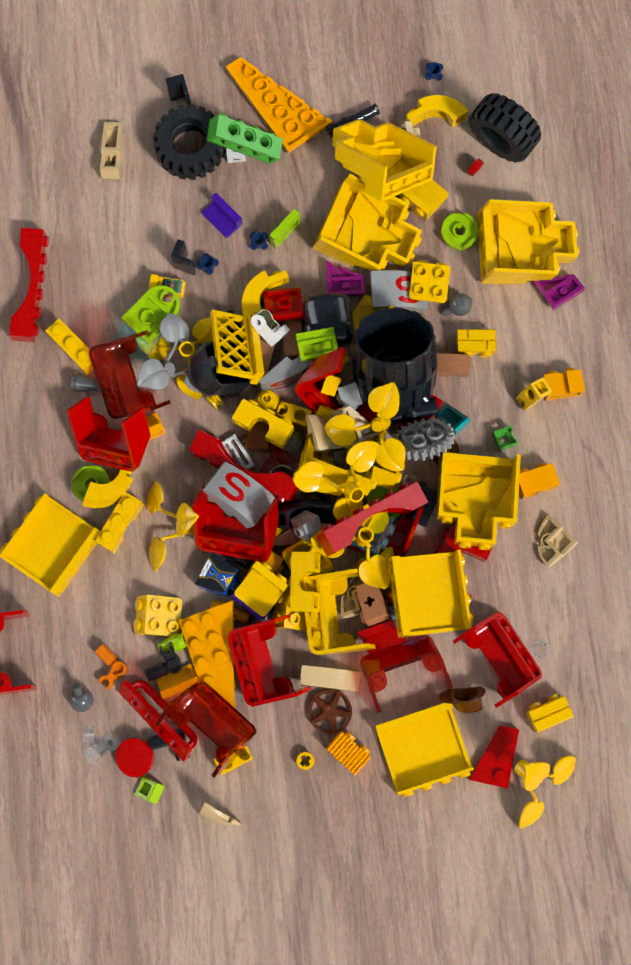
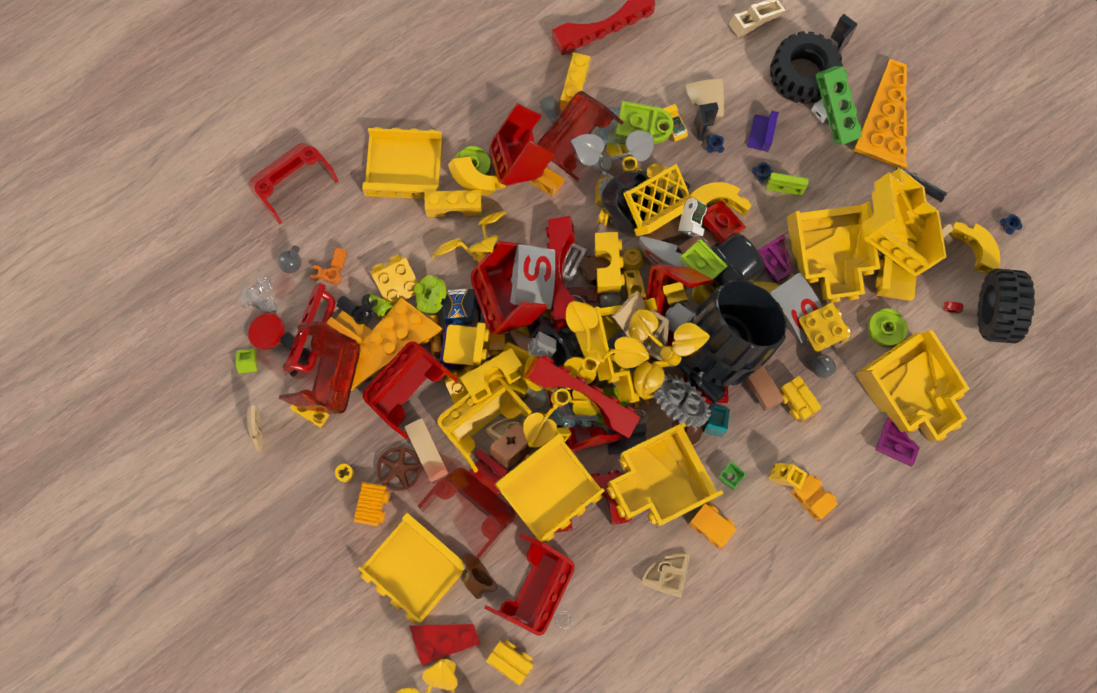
camera: 55 degrees right, 5 degrees down
(157, 241) = (707, 92): none -> tan brick
(185, 598) = (430, 302): none -> lime plate

